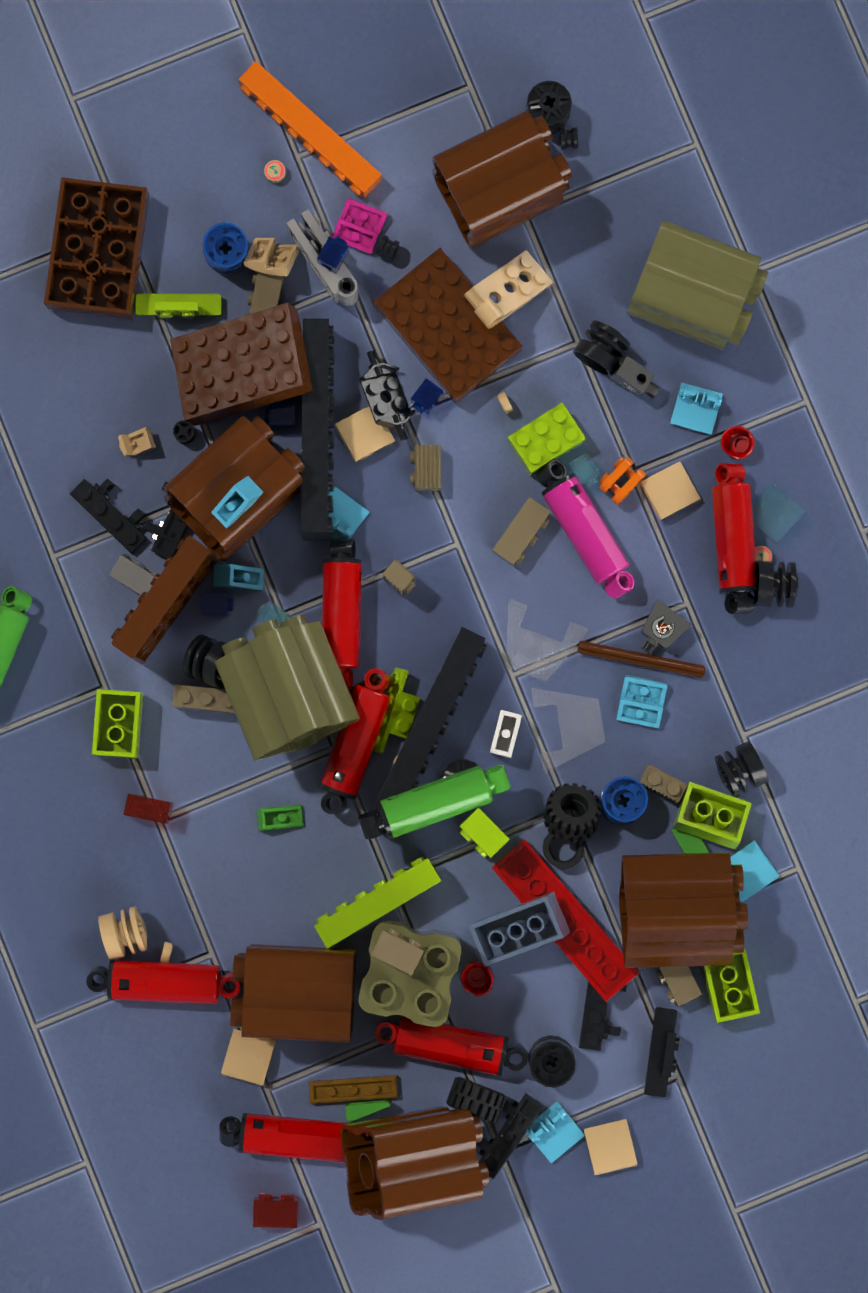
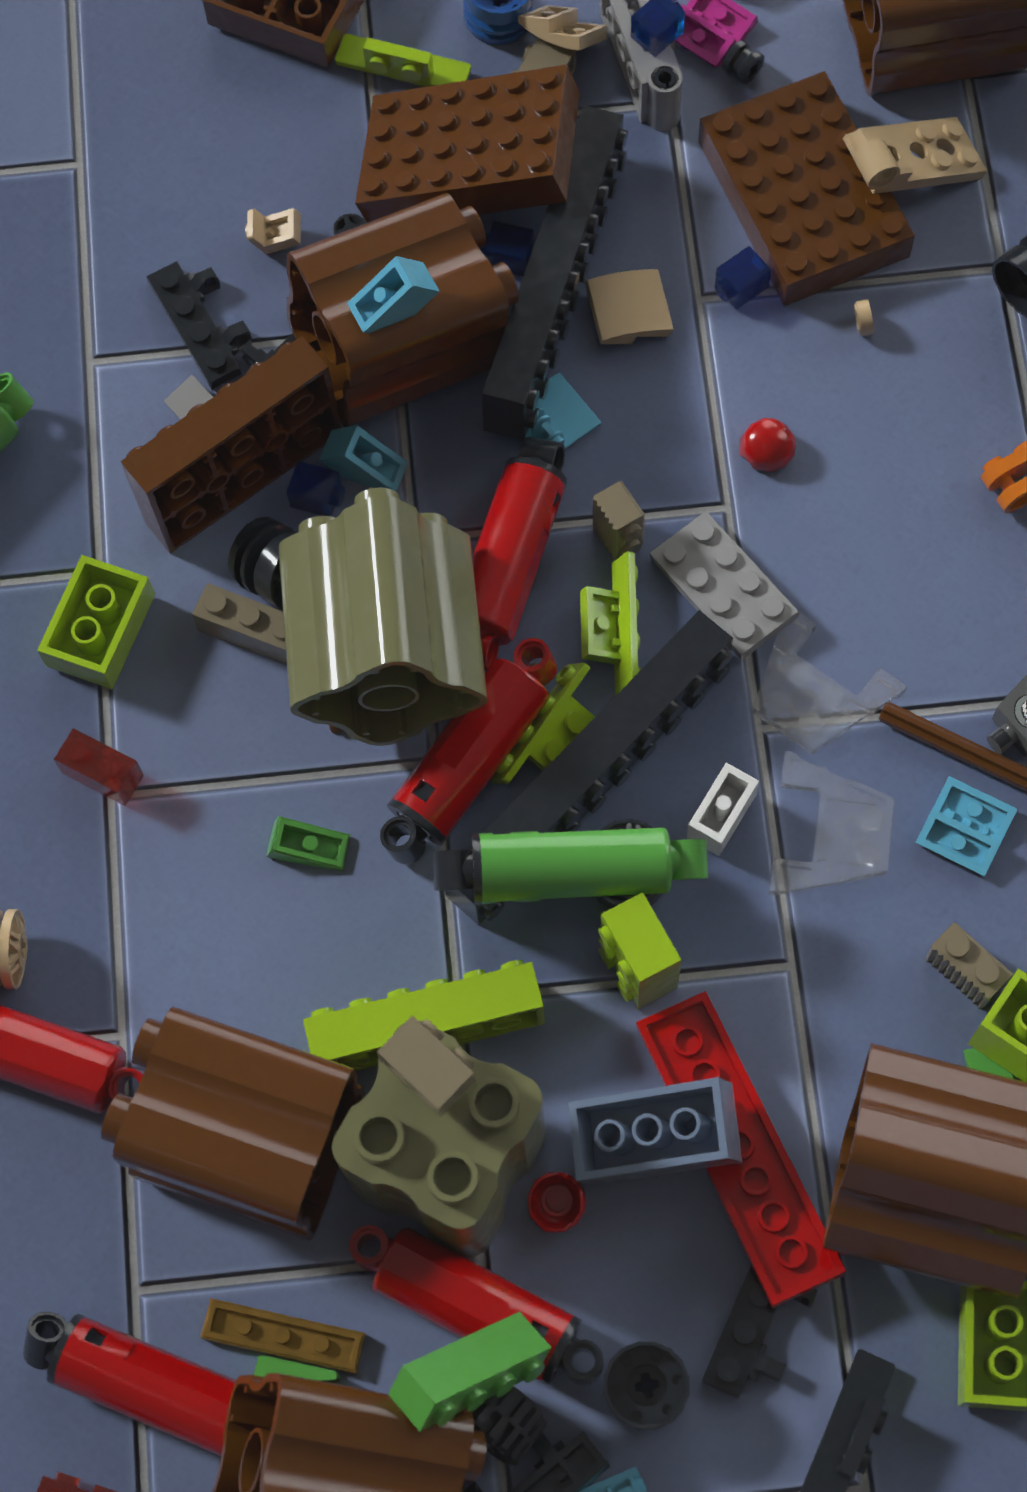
camera: 20 degrees right, 15 degrees down
(166, 952) = (47, 1004): tan tile -> none
(248, 1058) = (121, 1224): tan slope -> none
(383, 379) = (679, 237): black plate -> none
(412, 640) = (611, 622): none -> lime bracket
(427, 467) = (712, 378): dark tan brick -> none
(463, 1090) = (469, 1371): none -> bright green brick
(469, 596) = (724, 584): none -> light grey plate
(470, 500) = (768, 445): none -> red hair
(522, 532) = (837, 511): dark tan brick -> none
(546, 439) = (915, 384): lime brick -> none
(558, 863) = (775, 996): black tyre -> none
(576, 799) = (800, 965): black tyre -> none
(584, 470) = (963, 445): clear light blue brick -> none
(585, 529) = (944, 530): dark pink piece -> none
(628, 789) = (908, 957): blue wheel -> none
(680, 984) = (911, 1311): dark tan brick -> none

